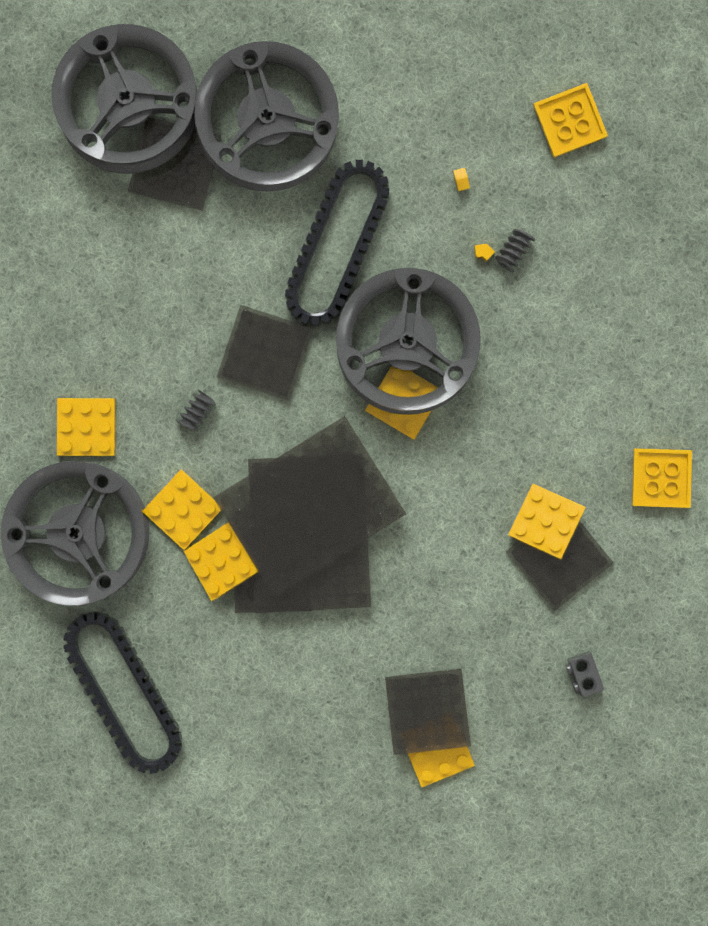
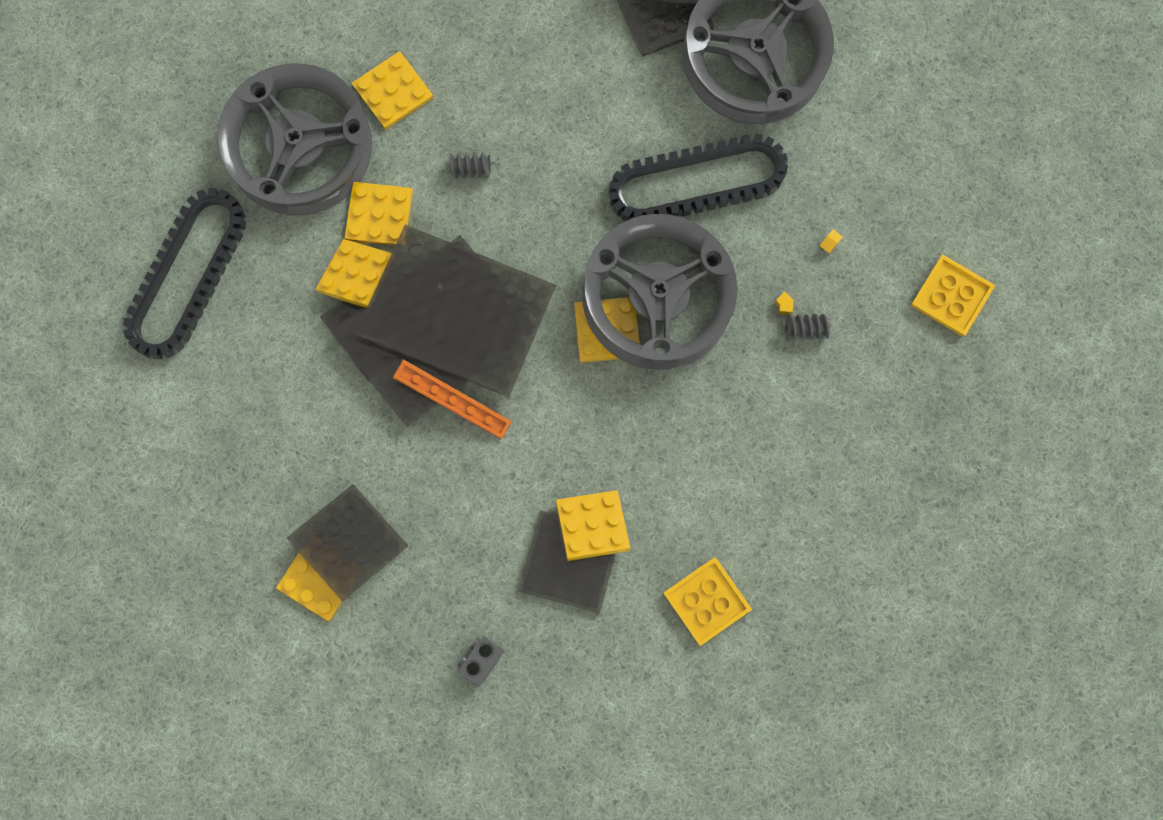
camera: 60 degrees right, 10 degrees down
(264, 352) = (561, 187): clear smoke plate -> none
(375, 558) = (452, 399): none -> orange tile

